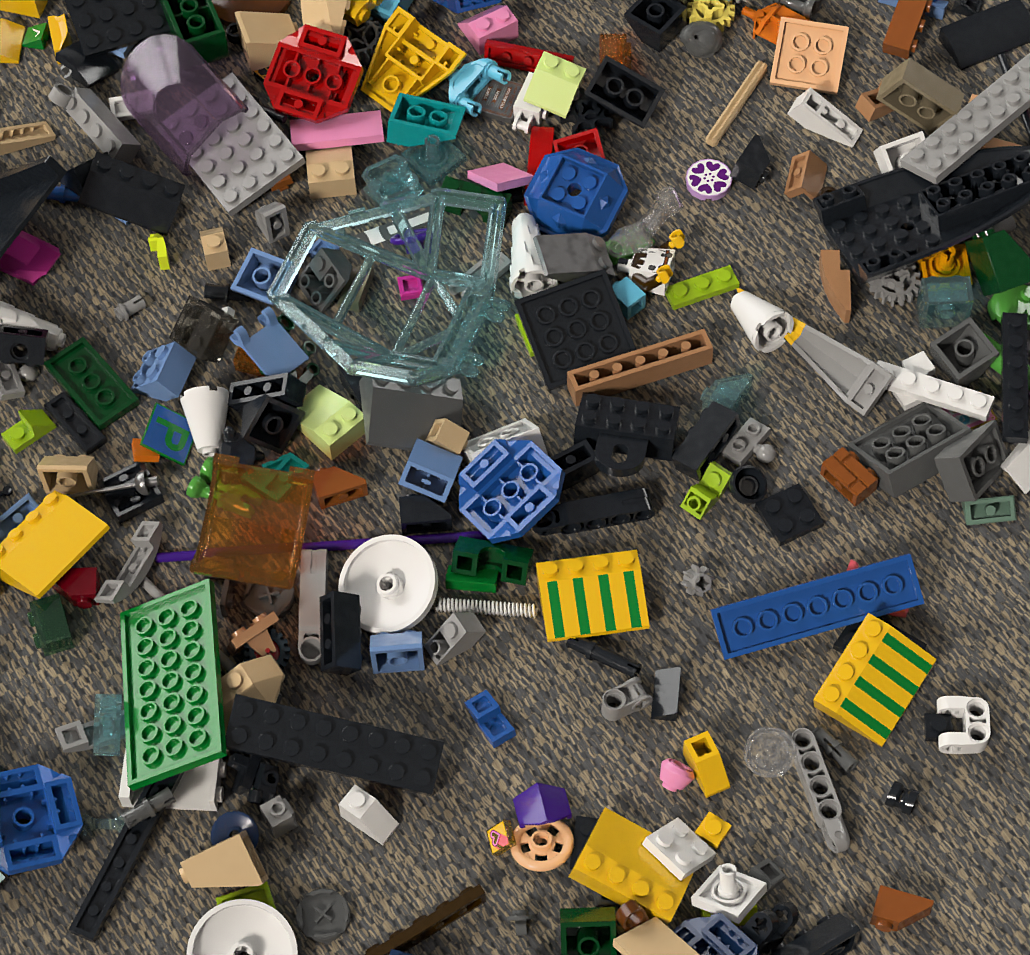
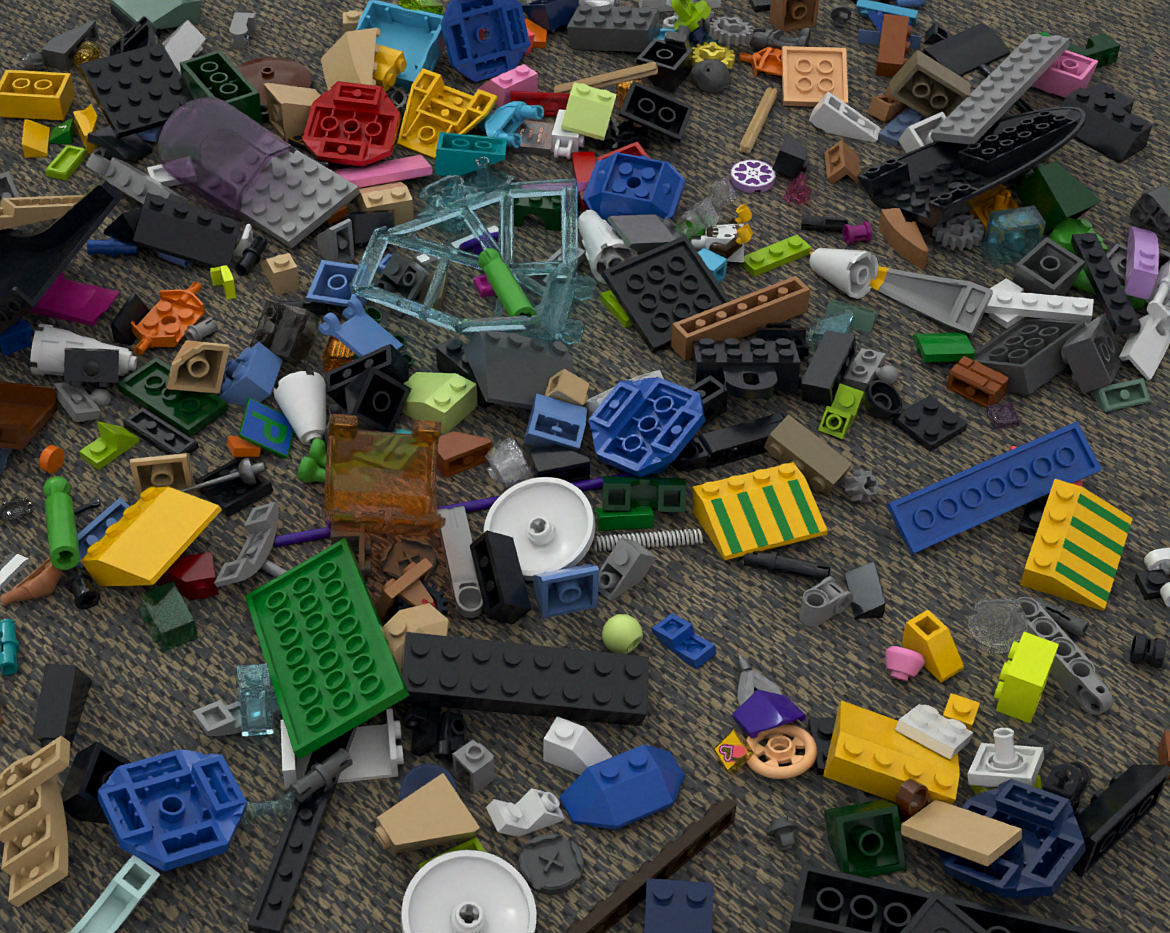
camera: 15 degrees left, 15 degrees down
(35, 75) = (66, 162): none -> lime tile
(67, 287) = (132, 310): none -> black slope
(108, 276) = (178, 309): none -> orange plate
(116, 359) = (199, 367): none -> tan slope
(188, 205) = (244, 241): none -> white slope
(191, 222) = (251, 256): none -> black axle
(309, 203) = (366, 221): none -> black brick
(314, 867) = (530, 813): none -> white slope
(376, 510) = (507, 464): none -> clear cone
(401, 858) = (624, 788): none -> blue wedge
(417, 309) = (505, 284): none -> bright green piece
(434, 706) = (622, 633): none -> yellowish green piece
(539, 767) = (752, 680): none -> flat silver piece
(587, 36) = (612, 77): none -> tan axle
(653, 542) = (814, 458): none -> dark tan brick
(676, 391) = (784, 330): none -> black slope
(745, 206) = (797, 189): none -> clear pink tile
(761, 253) = (823, 223): none -> black axle
(764, 376) = (863, 318): none -> sand green slope
(776, 810) = (1025, 676): none -> neon yellow brick
(791, 272) = (857, 233): none -> magenta bush
(831, 426) = (943, 346): none -> green slope
(863, 516) = (1002, 415): none -> clear purple tile
(883, 132) = (898, 125): none -> sand blue plate

